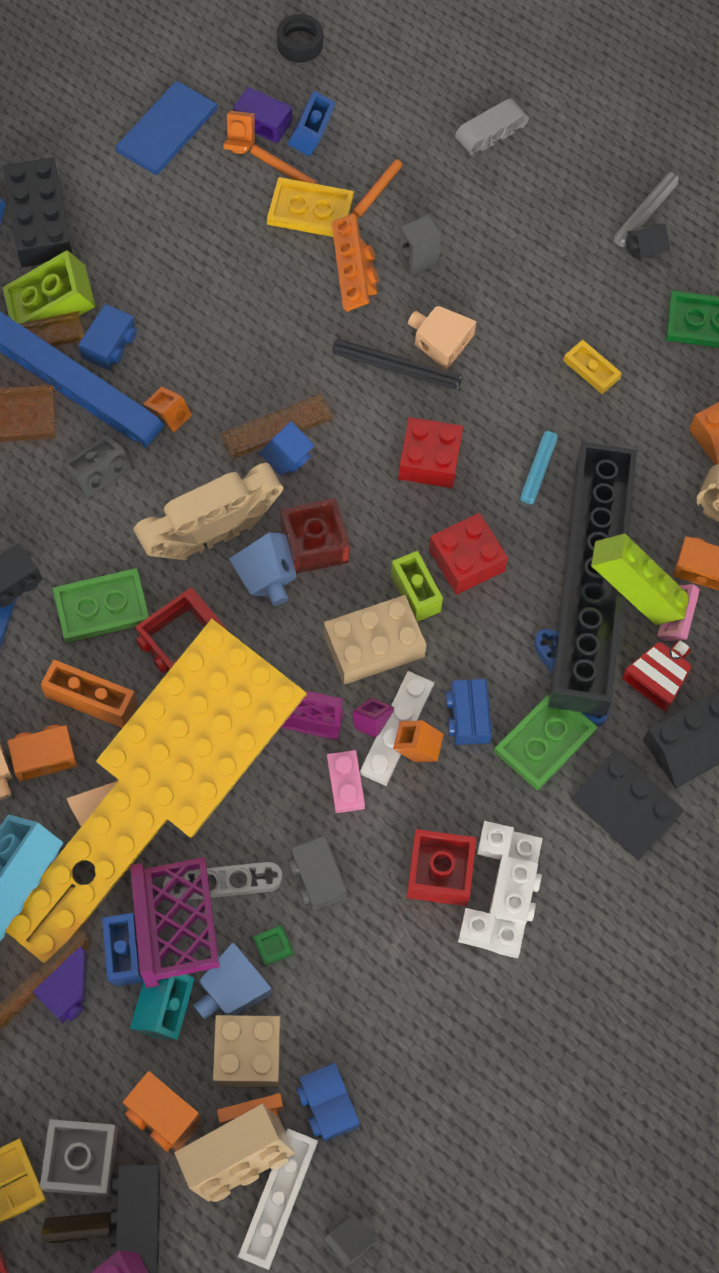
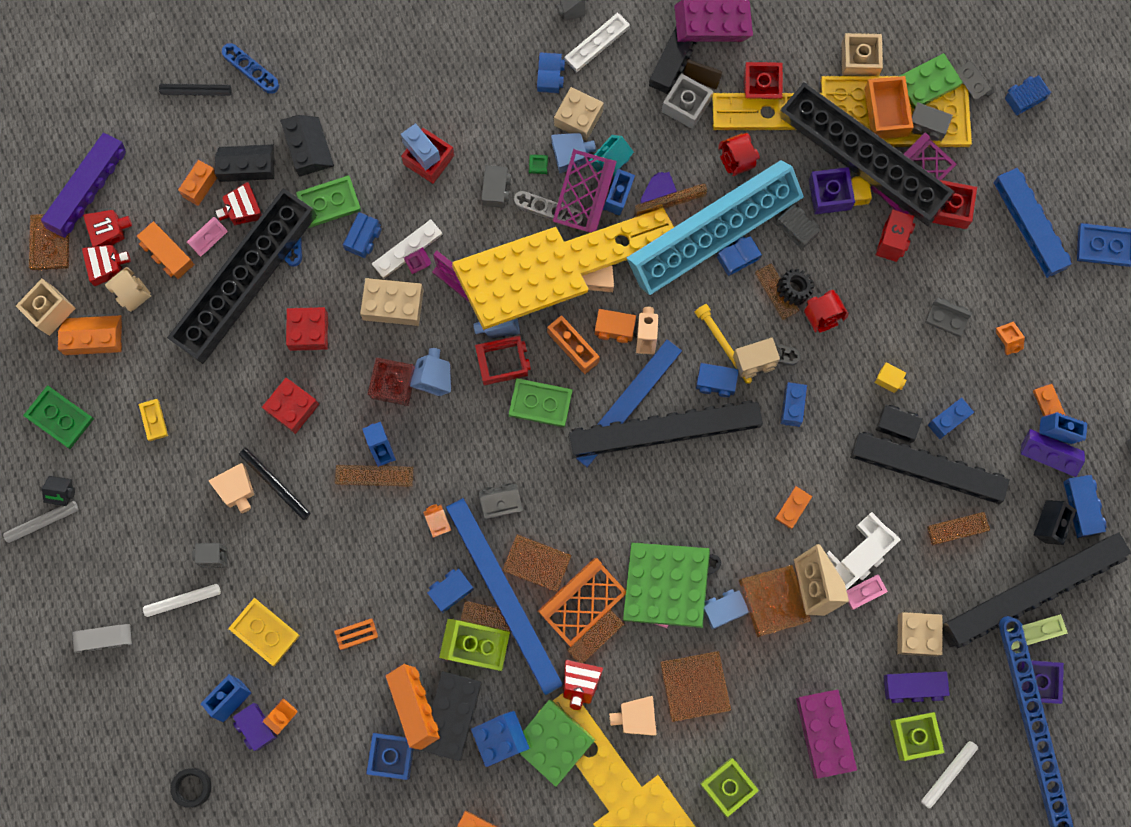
camera: 150 degrees left, 10 degrees up
(85, 191) = (412, 707): none -> orange brick
(88, 145) = (390, 757): none -> blue brick
(162, 1111) = (636, 100): orange brick -> none
(166, 128) = (326, 754): blue tile -> none
(188, 249) = (339, 639): none -> orange tile
(210, 514) = (449, 415): tan piece -> none
(235, 1154) = (609, 61): tan brick -> none
(272, 1102) = (588, 86): orange plate -> none
(280, 165) = (263, 678): orange bar -> none
(345, 781) = (452, 232): bright pink plate -> none
(354, 263) = (261, 566): orange bracket -> none
(377, 188) = (209, 629): orange bar -> none
(416, 582) = (349, 320): lime brick -> none
(418, 741) = (401, 229): orange brick -> none
(428, 200) = (181, 600): none -> white axle
(451, 853) = (420, 146): none -> medium blue brick
(511, 901) = (388, 134): white bracket -> none
(538, 467) = (229, 369): medium azure axle -> none
(639, 579) = (221, 247): lime brick -> none

